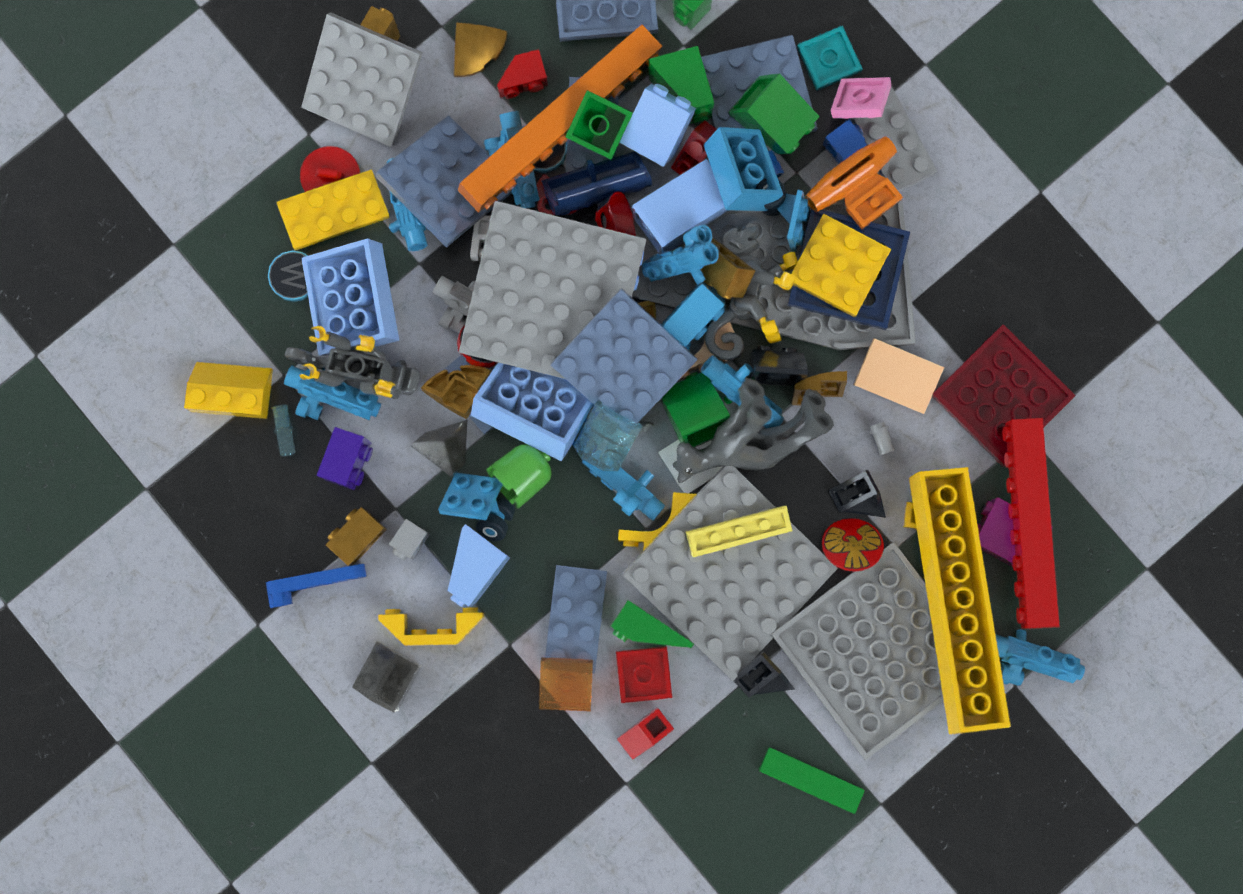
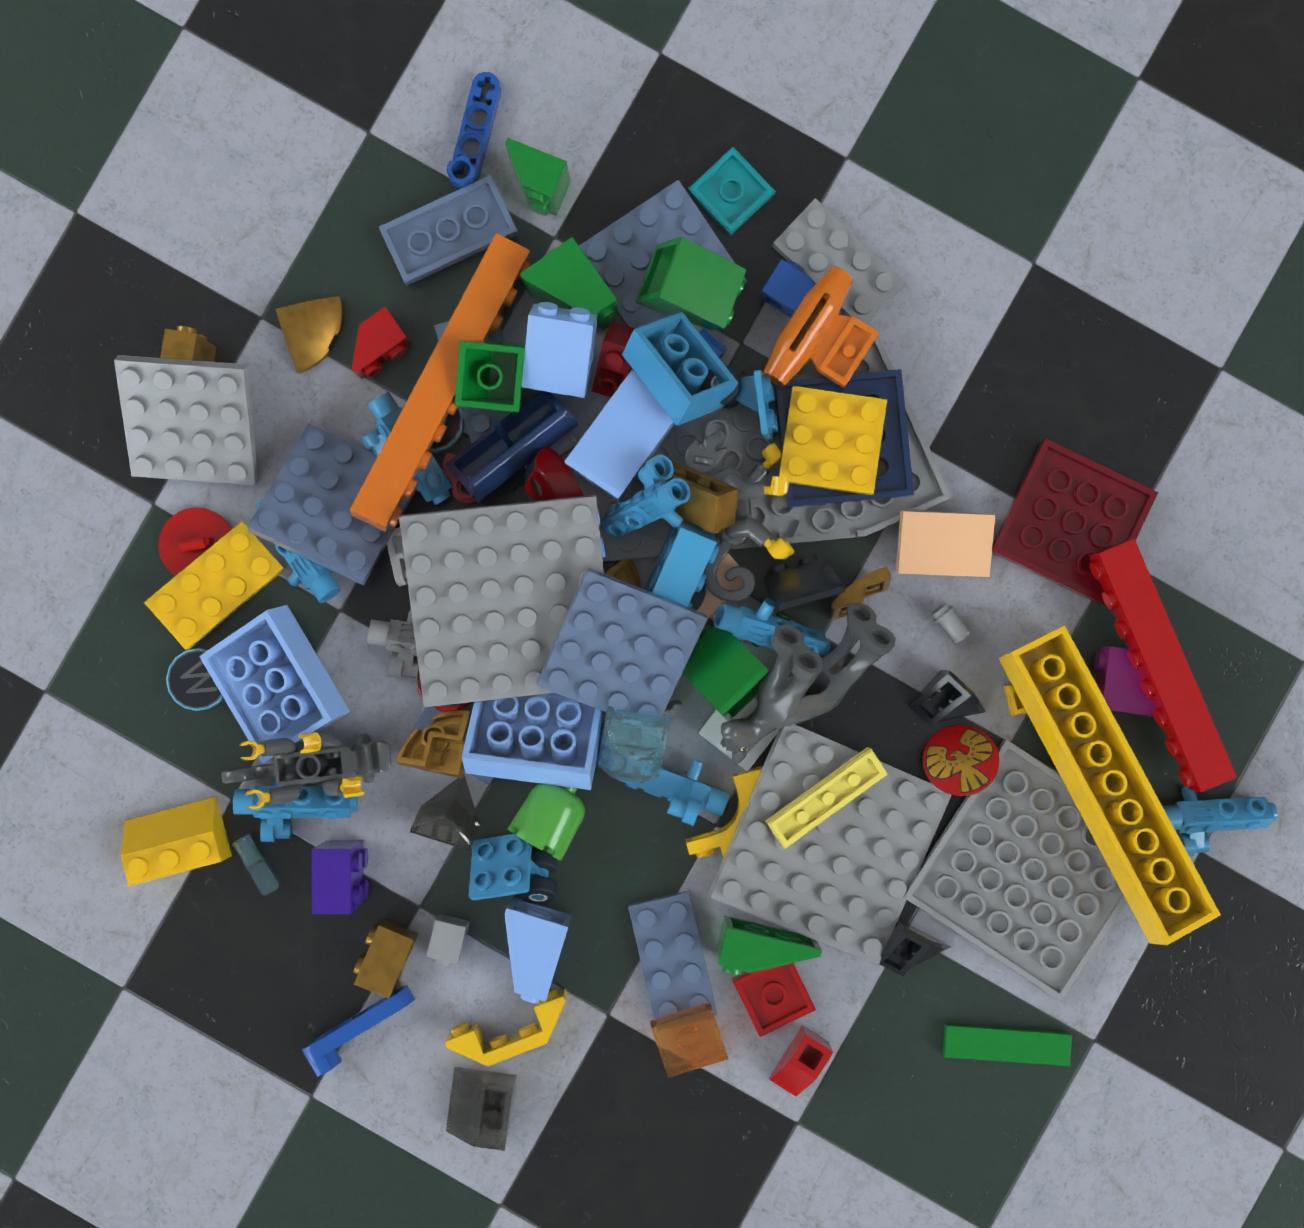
camera: 15 degrees left, 5 degrees up
(861, 98) = (787, 228): bright pink plate -> none

